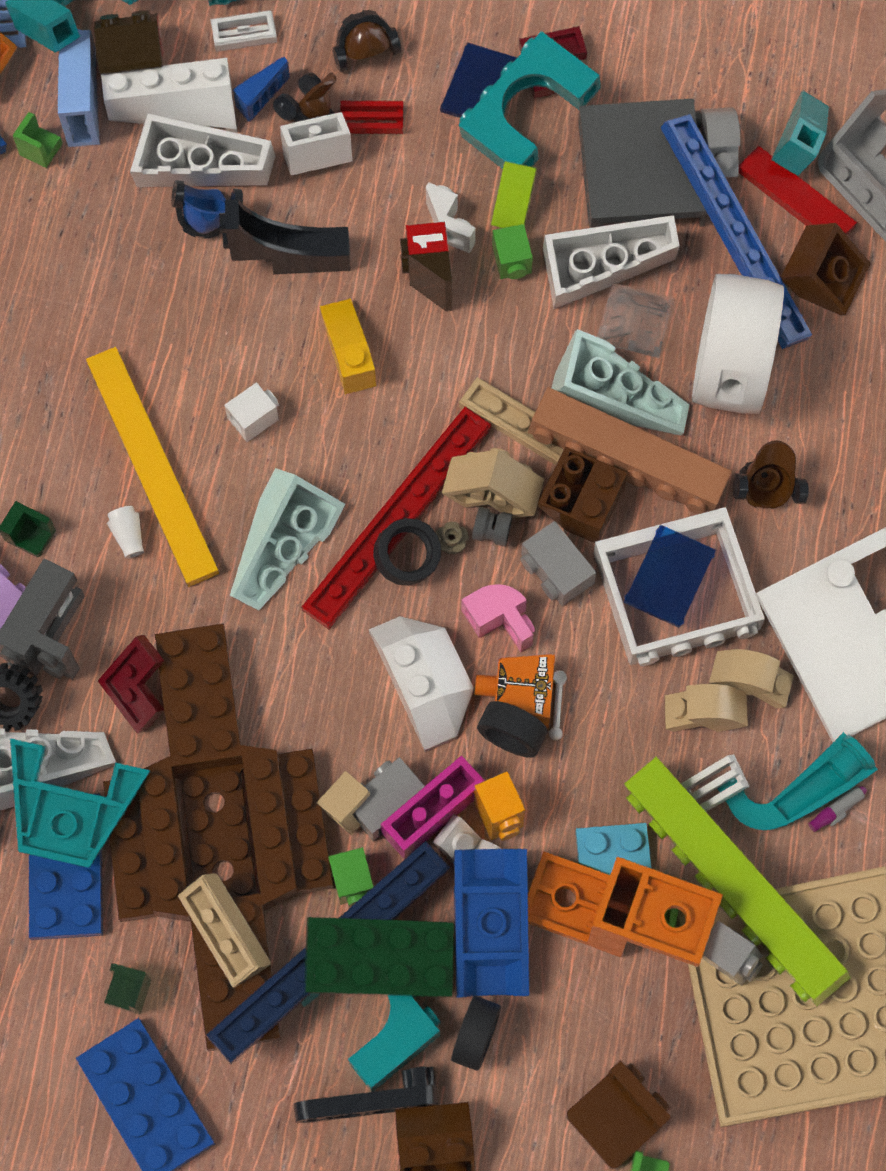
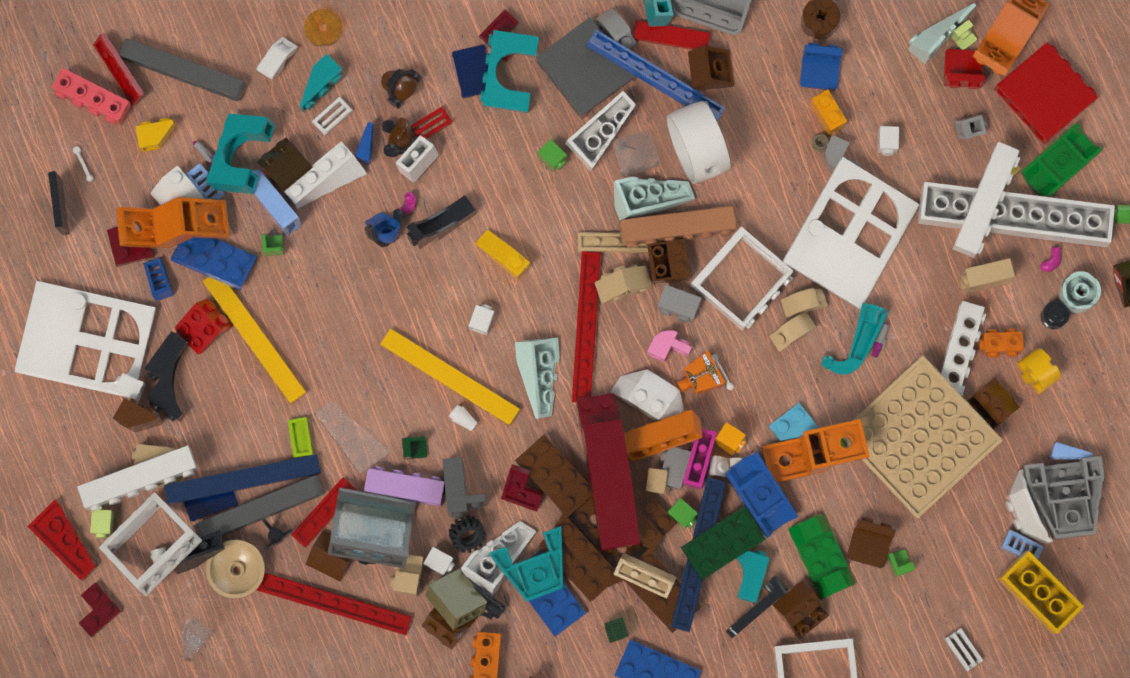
camera: 35 degrees left, 10 degrees up
(199, 156) = (361, 202): white wedge -> none
(266, 200) = (409, 203): none -> dark pink arm
(274, 734) = (608, 471): none -> dark red slope
(397, 733) = (662, 435): none -> orange brick
(428, 262) = (518, 189): dark brown slope -> none
(431, 543) = (617, 336): black tyre -> none
(442, 207) = (500, 152): white slope -> none
(456, 545) = (624, 322): dark tan plate -> none
(476, 1033) = (786, 548): black tyre -> none
(484, 525) = (631, 305): dark grey wheel -> none
(512, 729) = (711, 398): black tyre -> none
(513, 195) = (534, 125): lime tile -> none
(527, 1085) = (821, 556): none -> green piece
(669, 576) = (737, 278): clear blue piece -> none
(732, 954) = (878, 441): light grey brick -> none
(735, 772) = (811, 378): white tile -> none
(744, 889) = (857, 405): lime brick -> none
(770, 478) = (752, 198): reddish brown cap -> none

